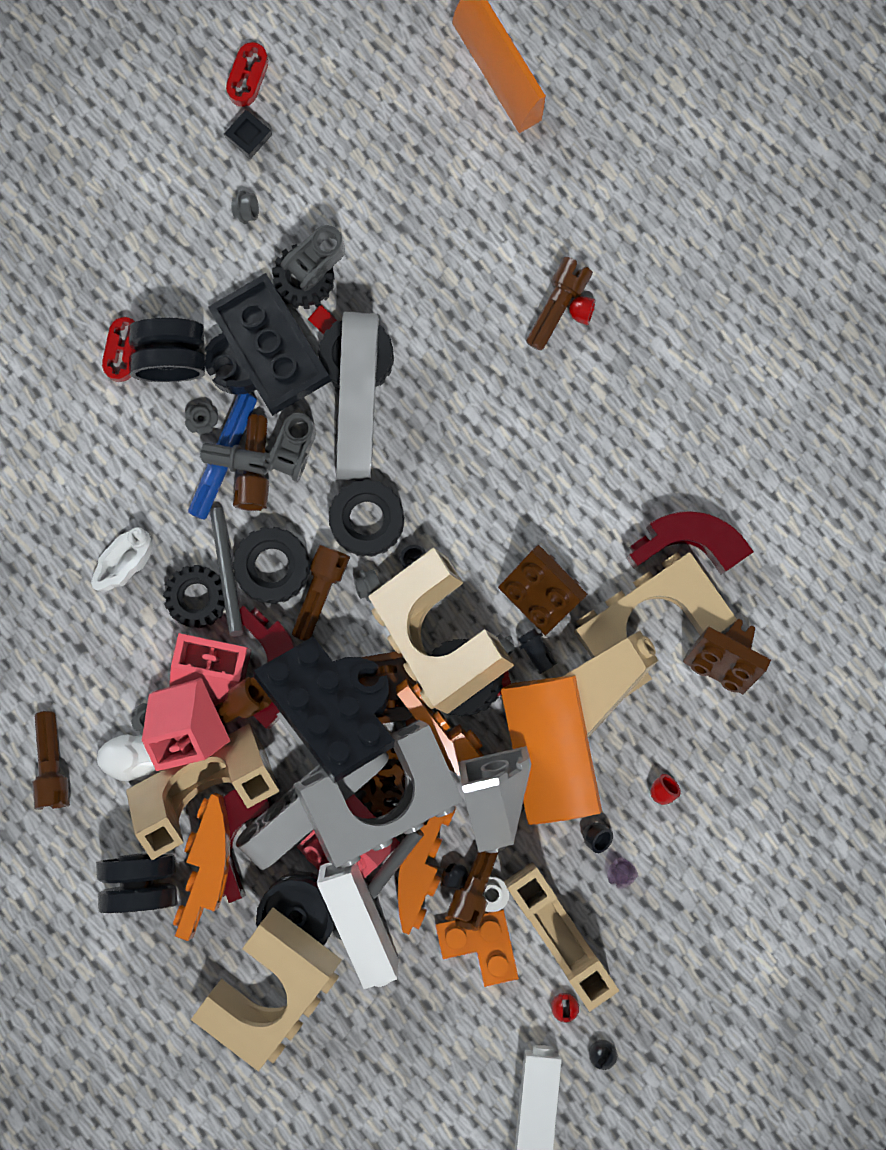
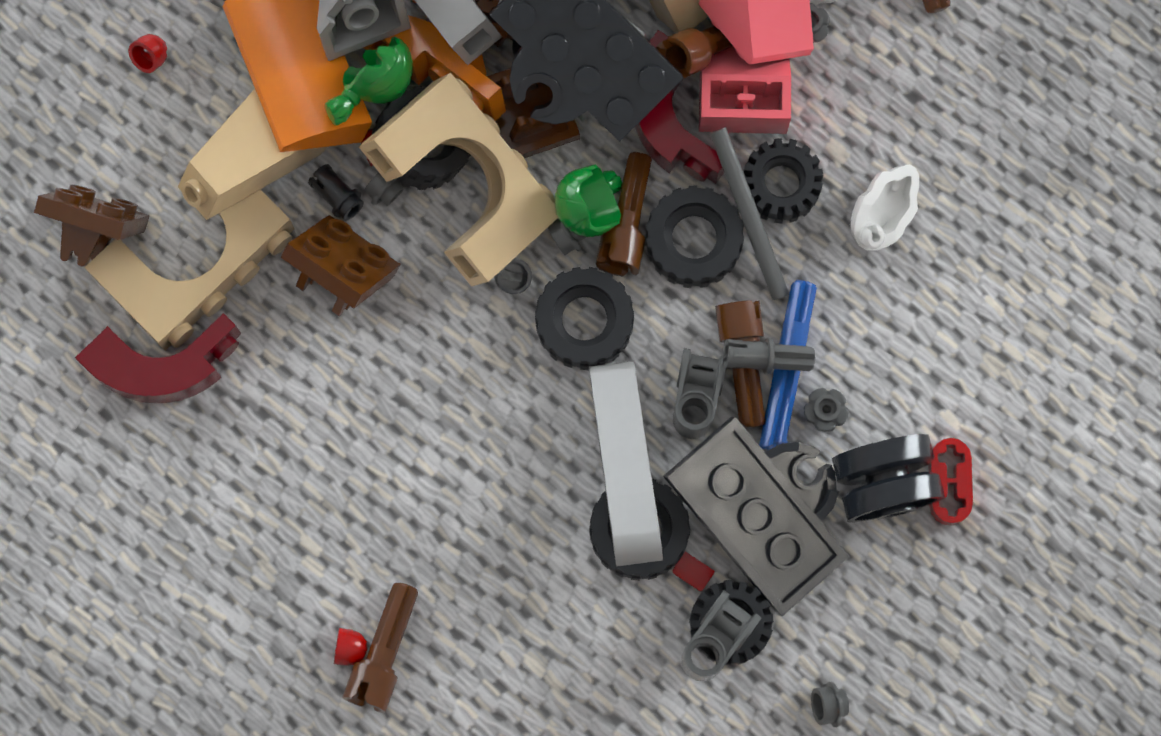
camera: 170 degrees right, 5 degrees down
(346, 597) = (587, 201): none -> green hair
(494, 719) = (378, 82): none -> green hair

